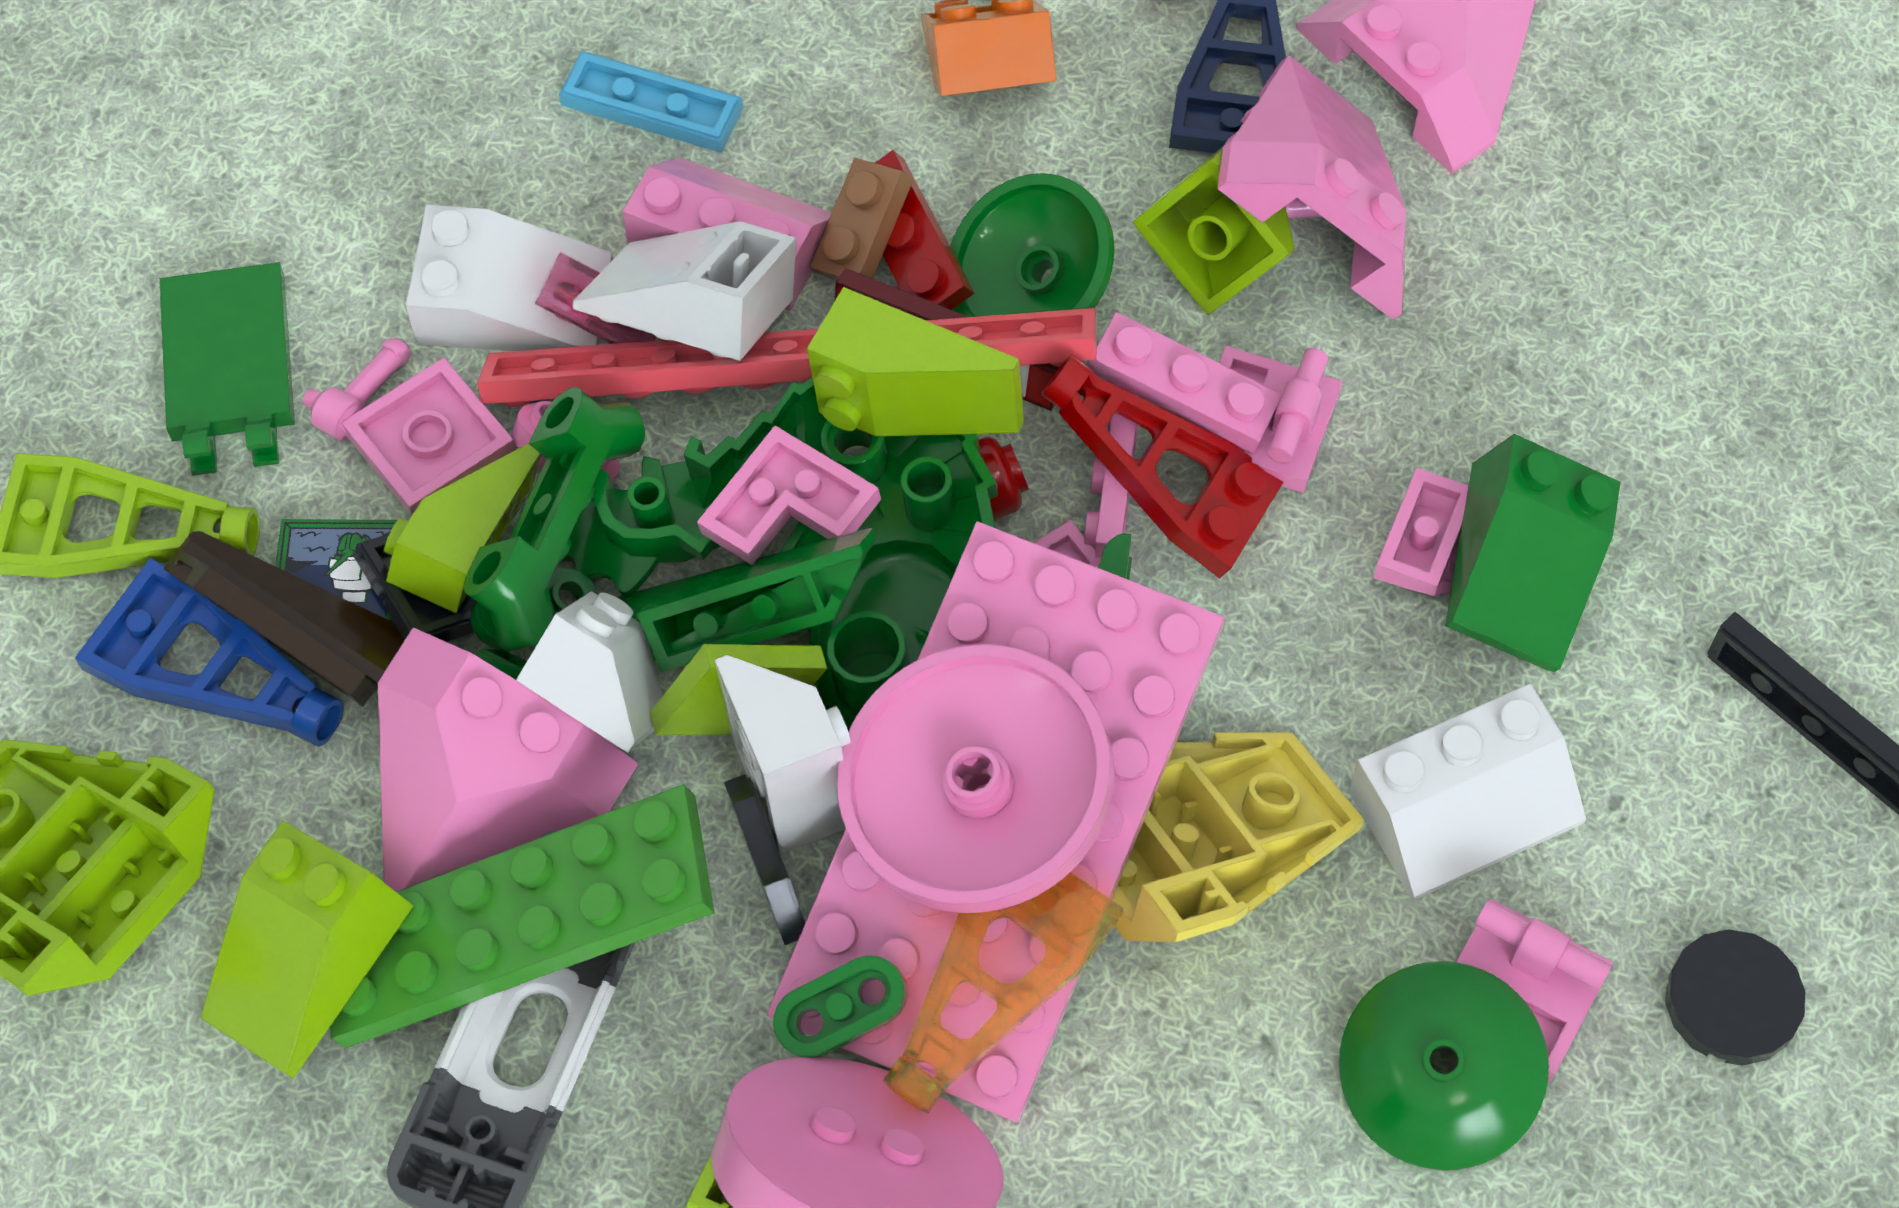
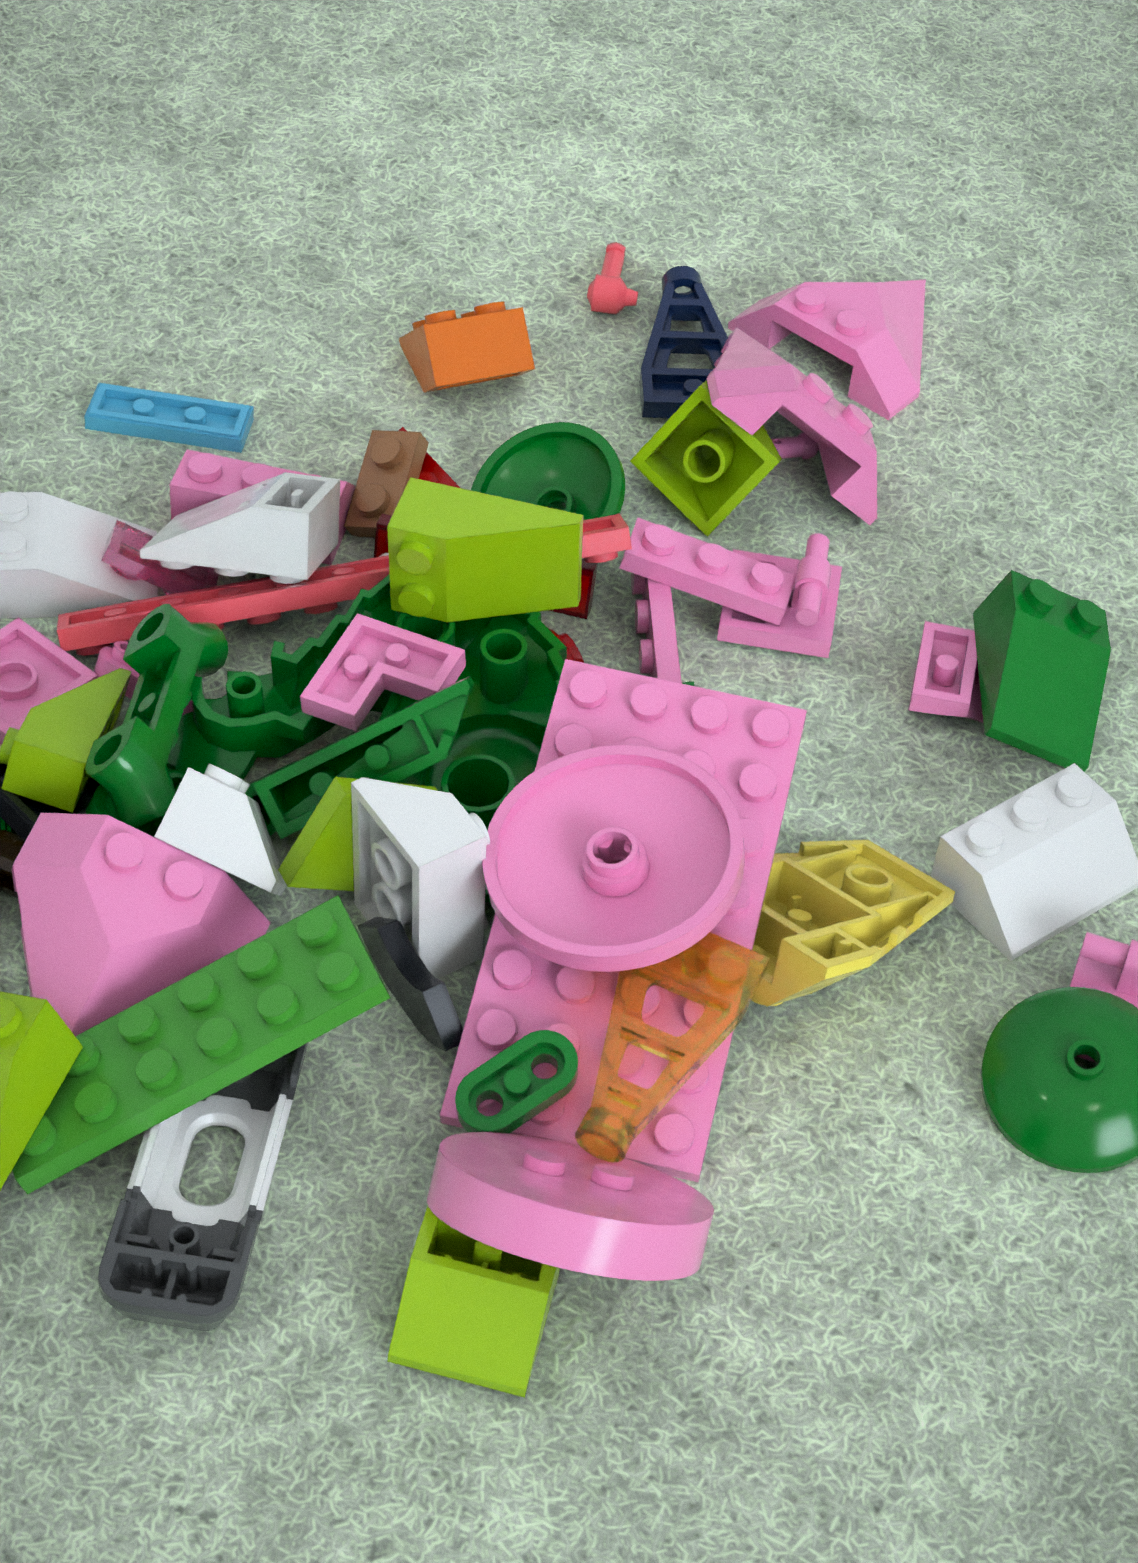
camera: 15 degrees left, 15 degrees down
(1229, 503) = (769, 655): red plate -> none

